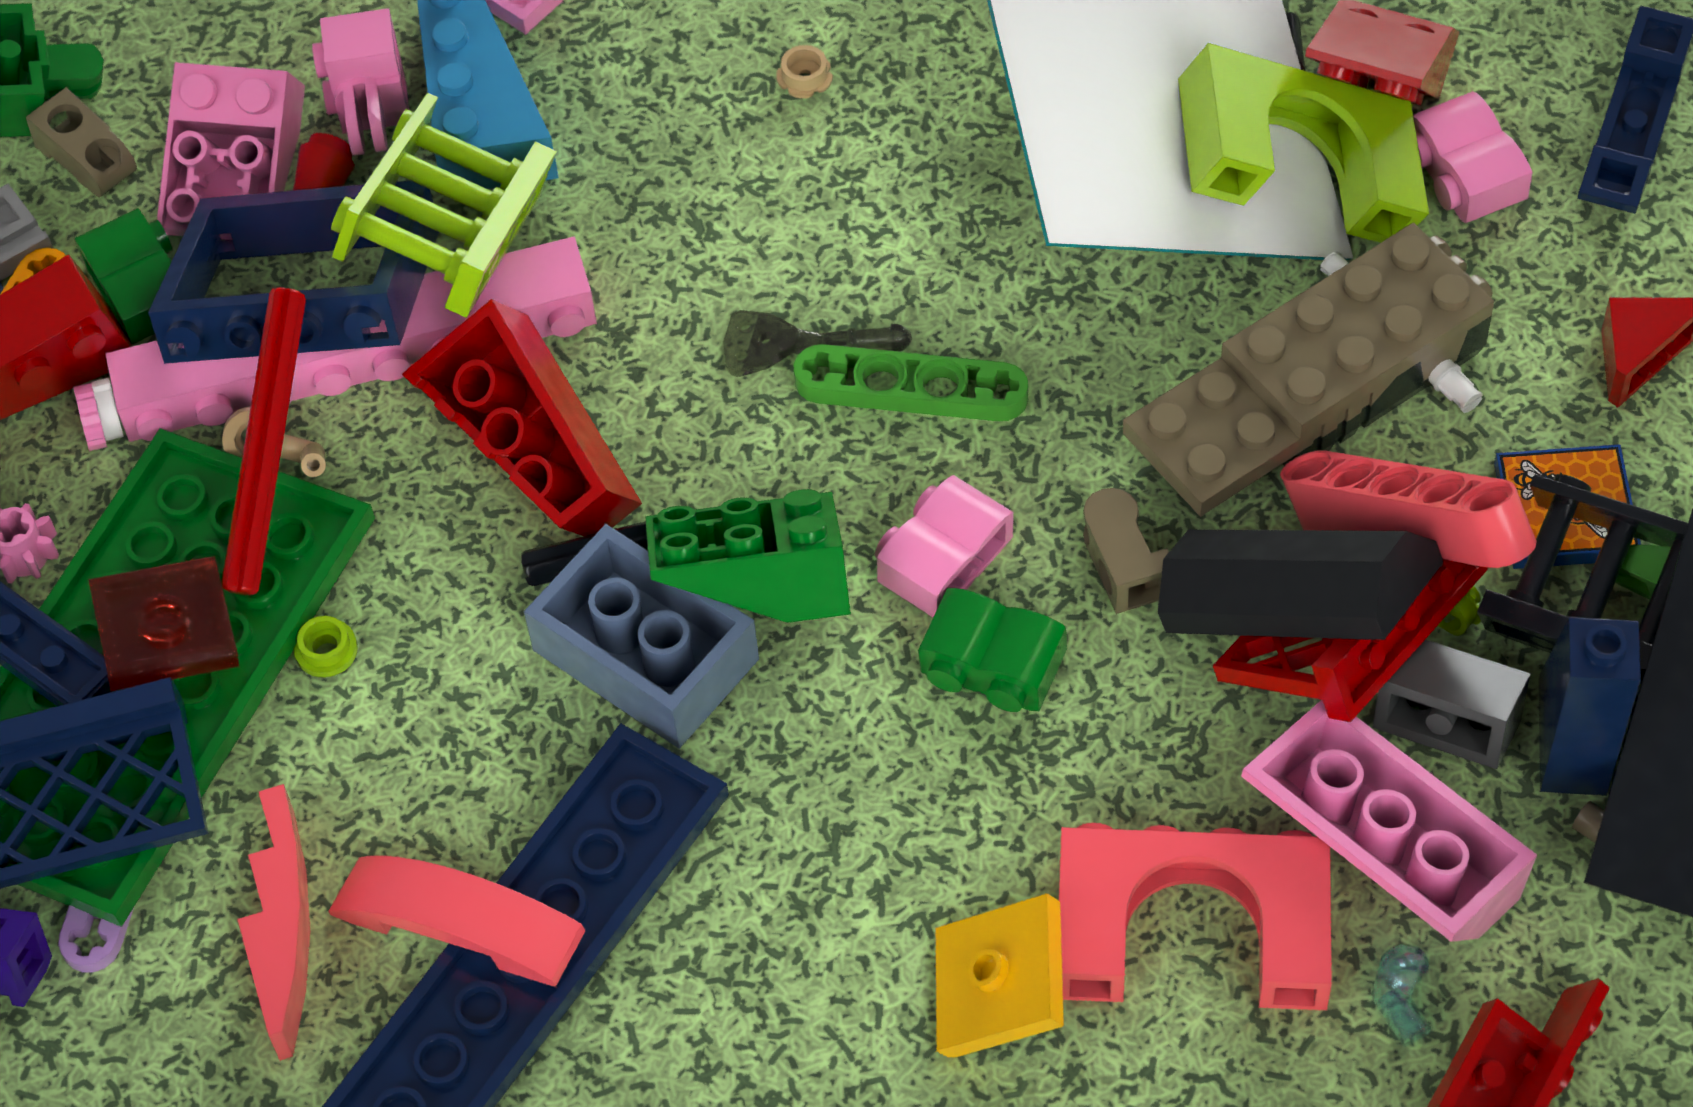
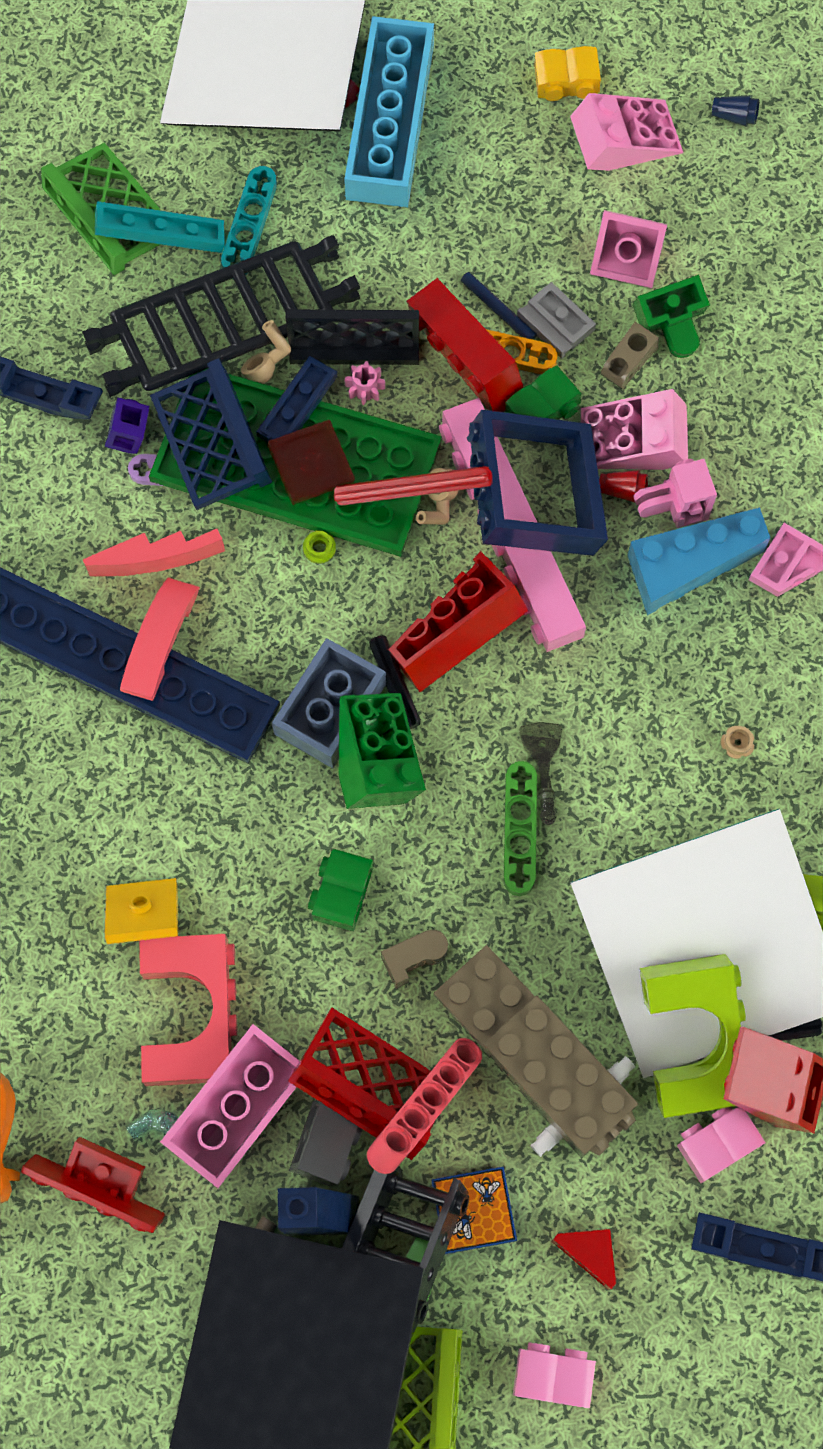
camera: 80 degrees right, 15 degrees up
(98, 413) = (447, 399): piece -> none
(483, 239) = (561, 574): lime fence -> none
(944, 544) = (407, 856): bright pink brick -> none
(1294, 582) = (376, 1046): black piece -> none

